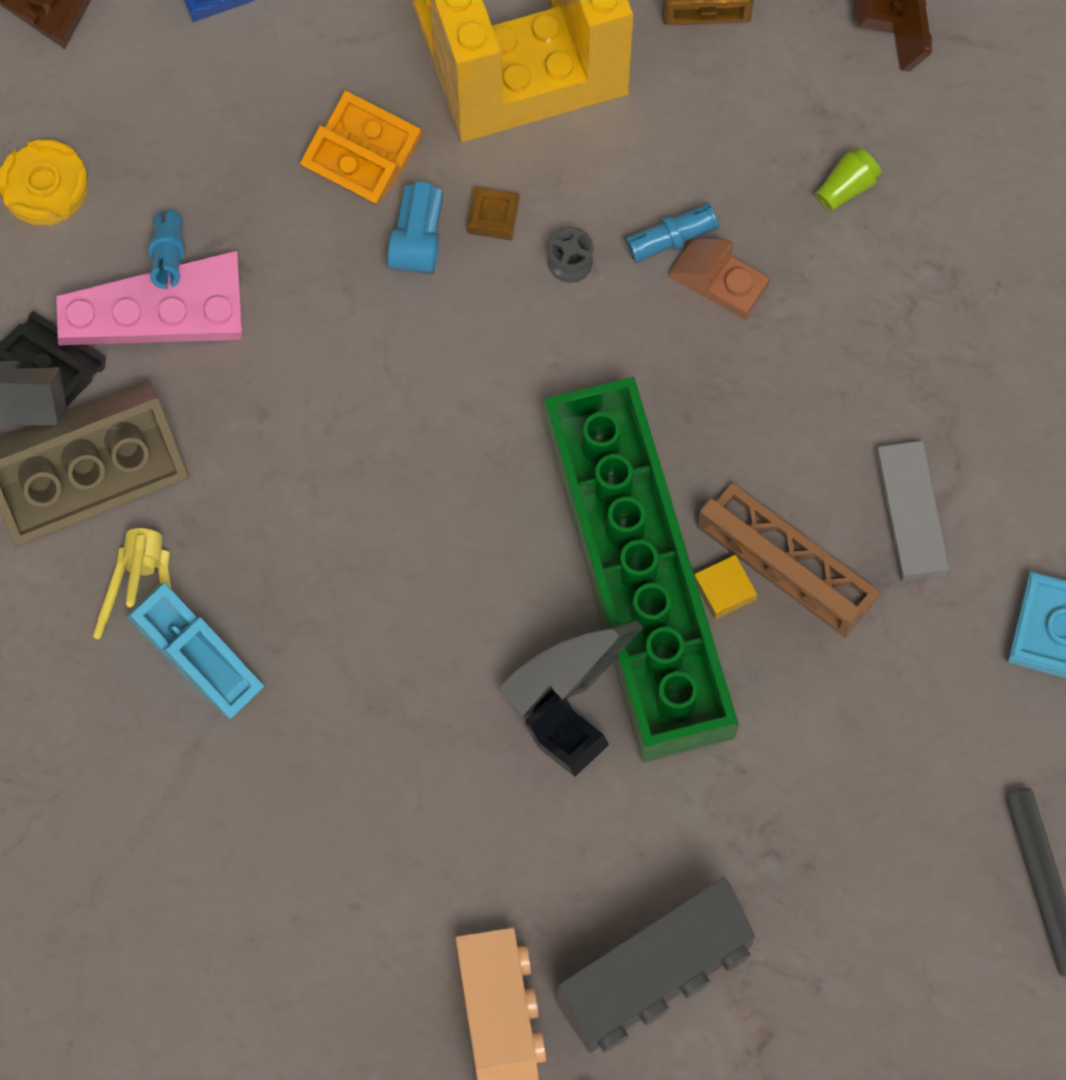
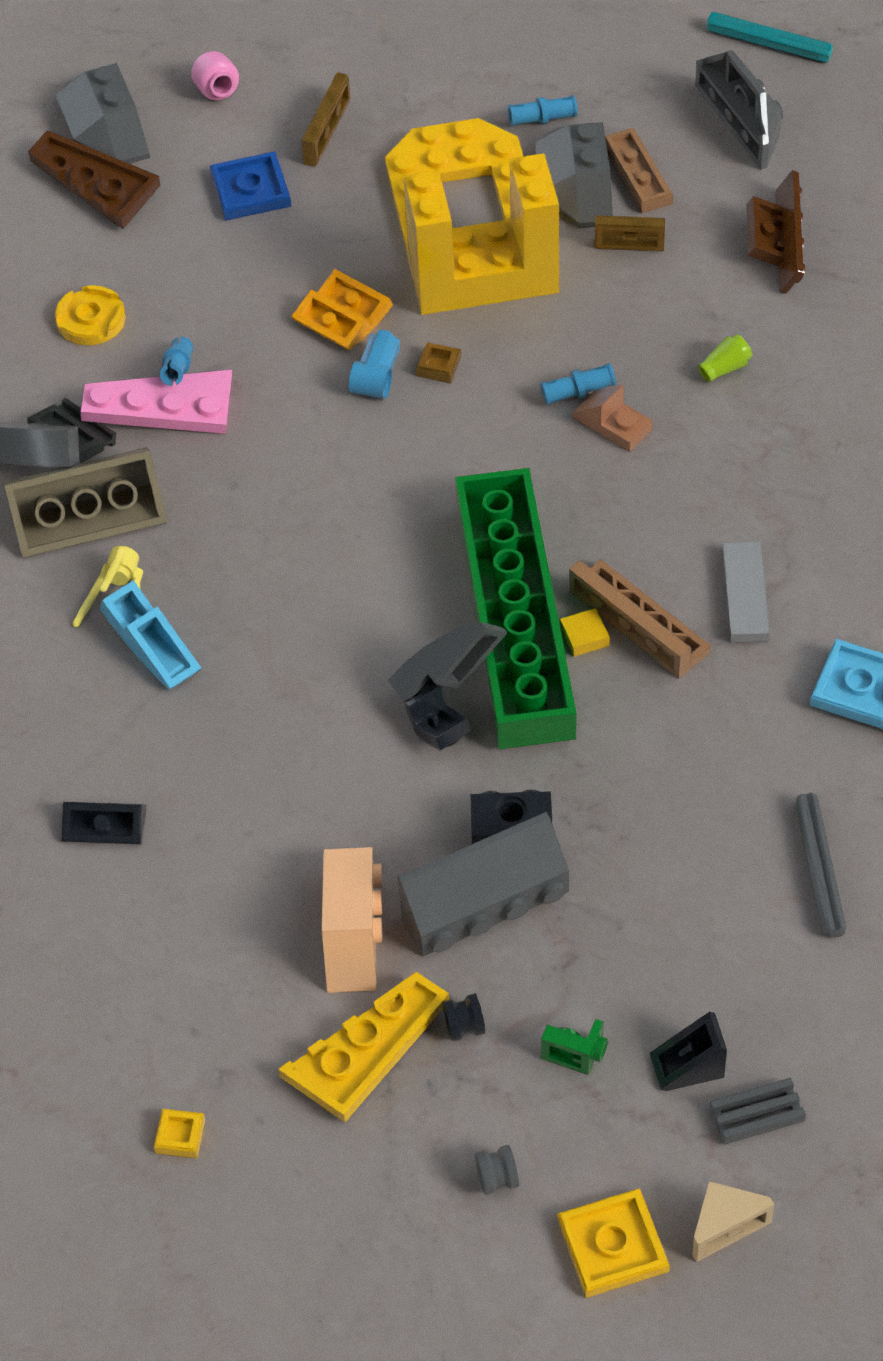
camera: 10 degrees right, 15 degrees down
(176, 912) = (103, 822): none -> black slope
(568, 244) = (494, 392): dark grey wheel -> none
(651, 885) = (492, 809): none -> black brick

